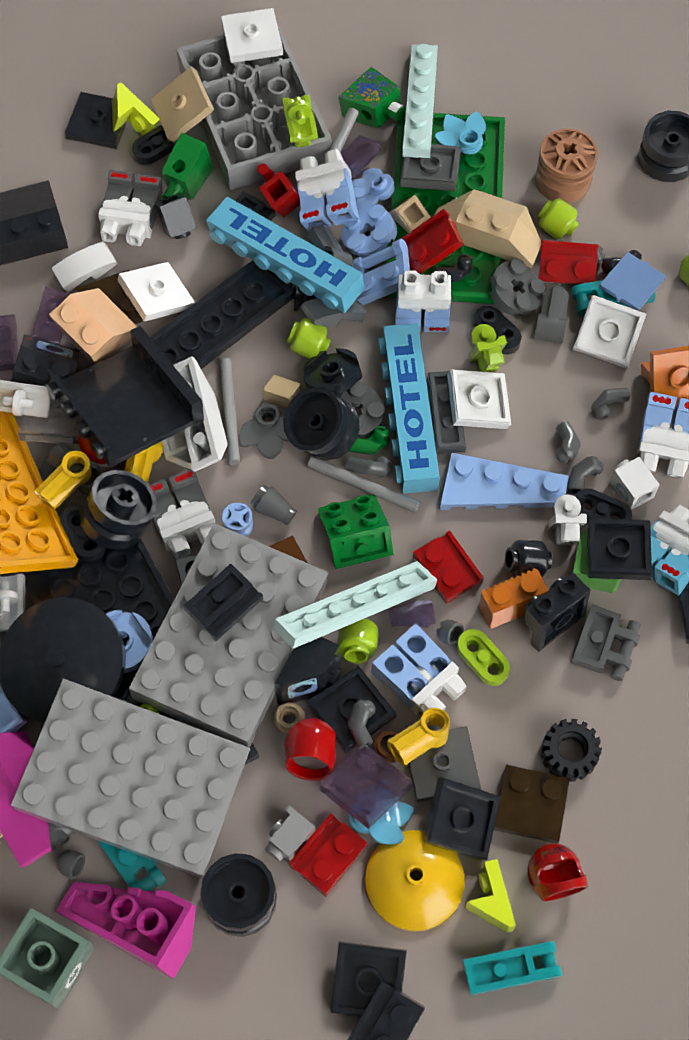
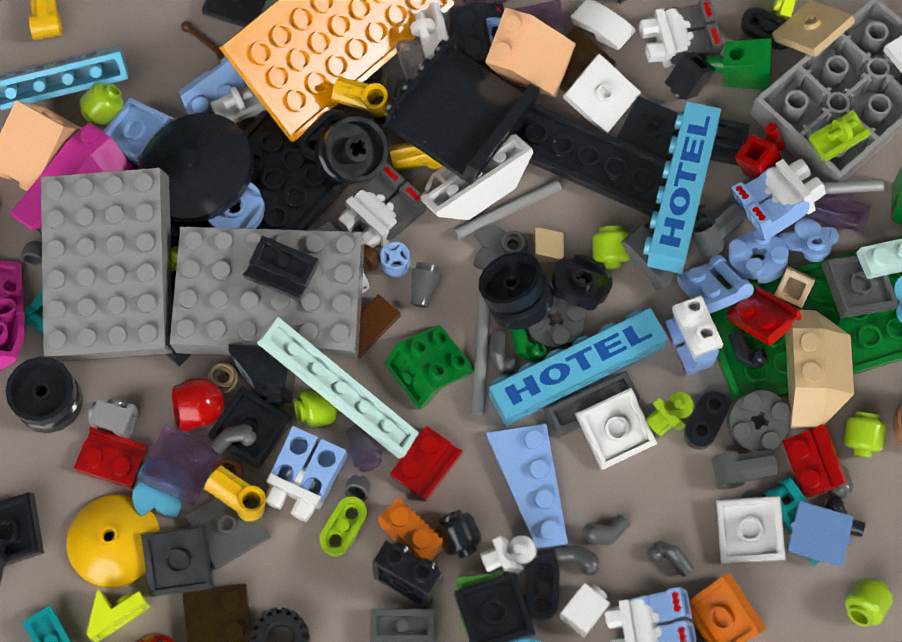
camera: 70 degrees right, 5 degrees up
(206, 266) = (650, 127): none -> black plate

